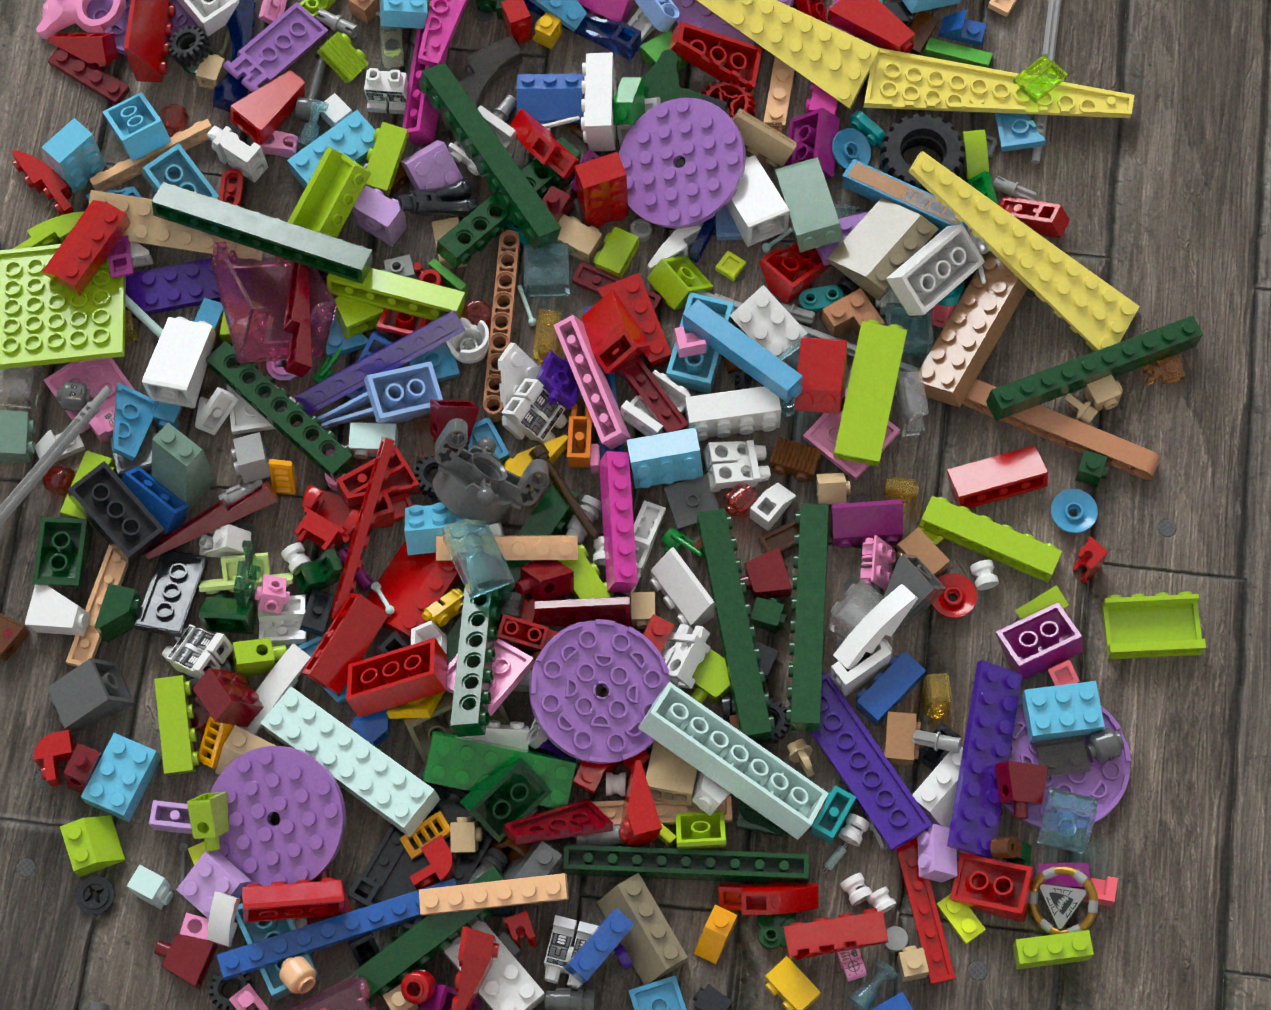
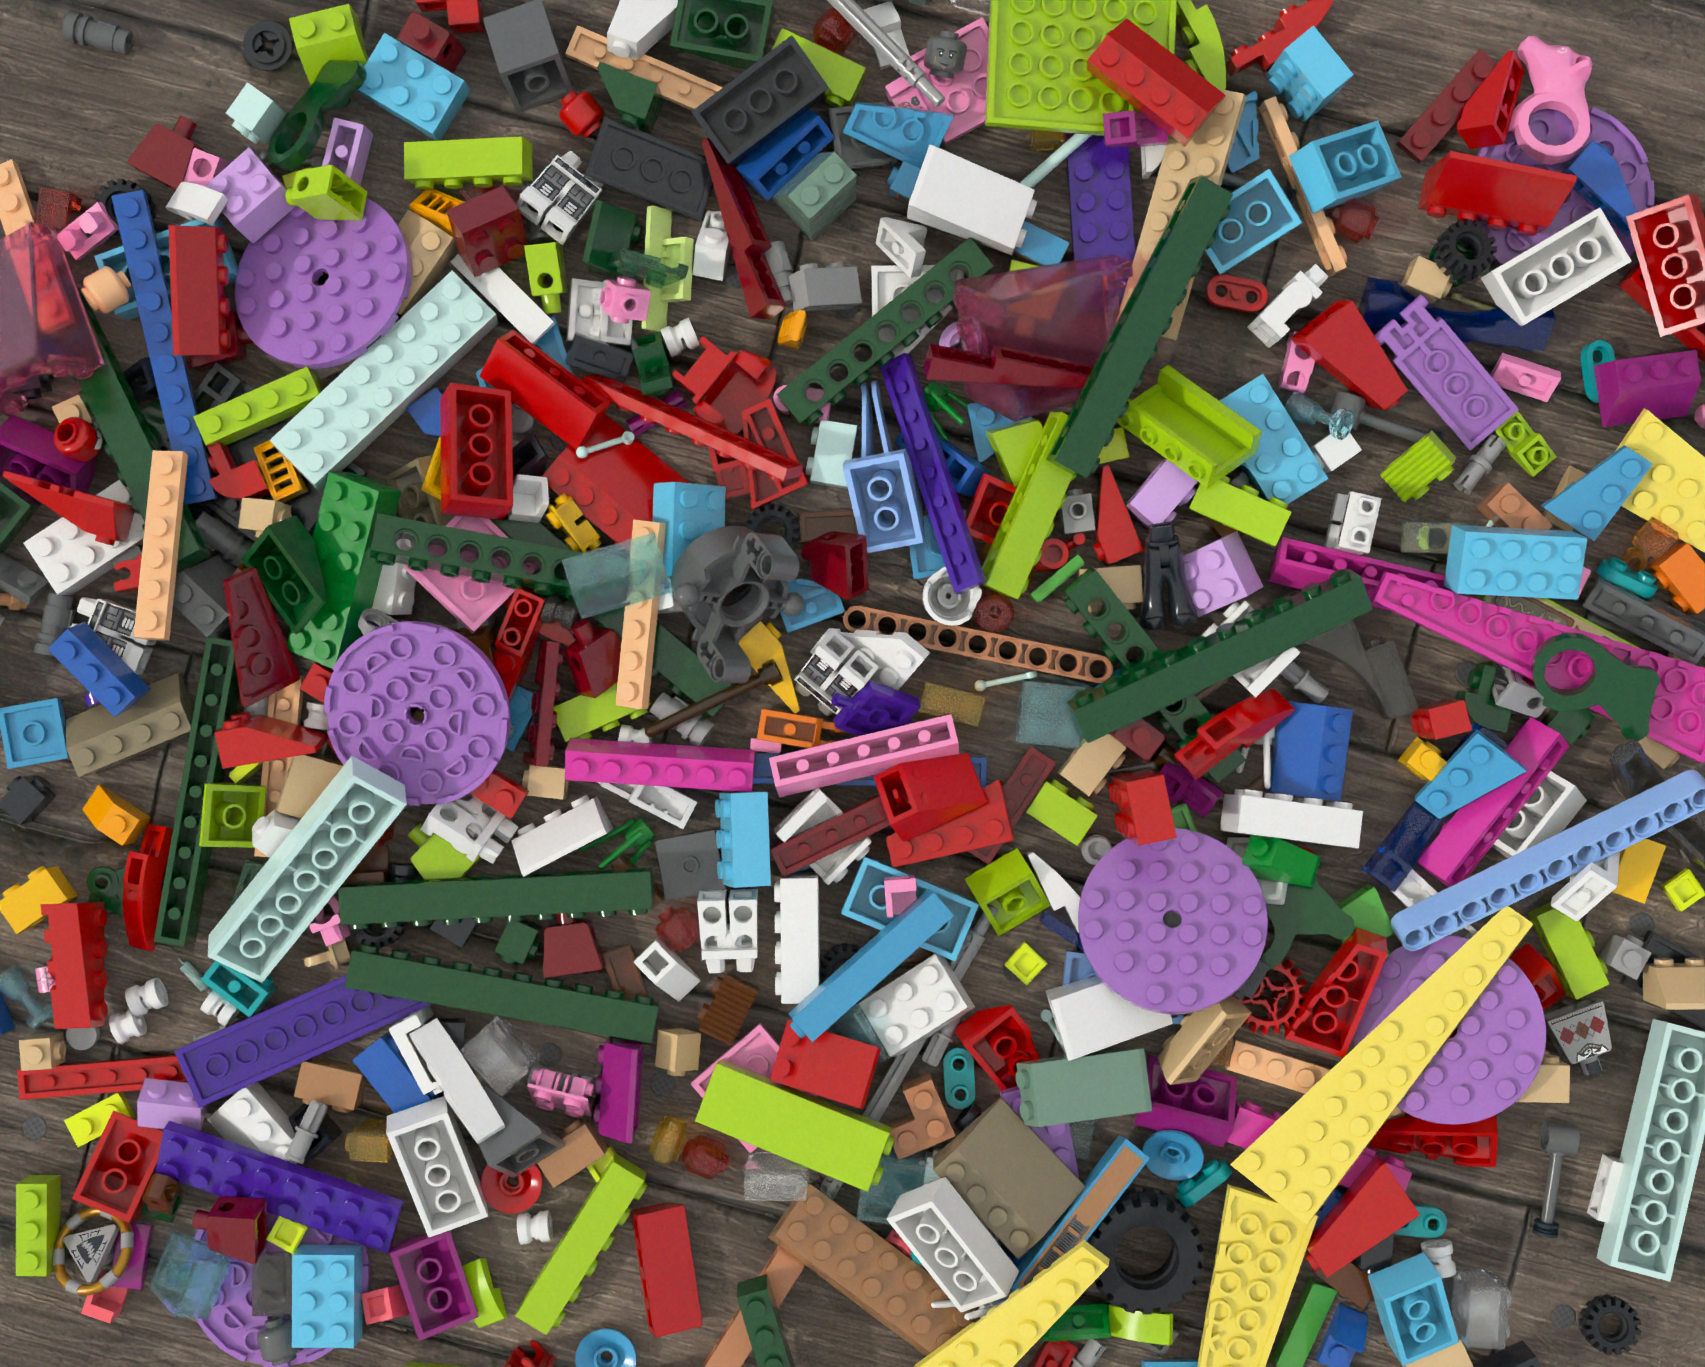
camera: 90 degrees right, 20 degrees up
(126, 834) = (327, 93): none -> dark green animal
(133, 650) = (581, 113): none -> red head
(379, 850) = (259, 408): none -> lime brick
(410, 241) = (1114, 529): none -> red slope
(778, 745) = (330, 926): none -> bright pink hips
(909, 461) = (704, 1157): none -> clear red head
(947, 642) = (436, 1166): none -> white brick
(1021, 751) = (287, 1234): none -> neon yellow tile

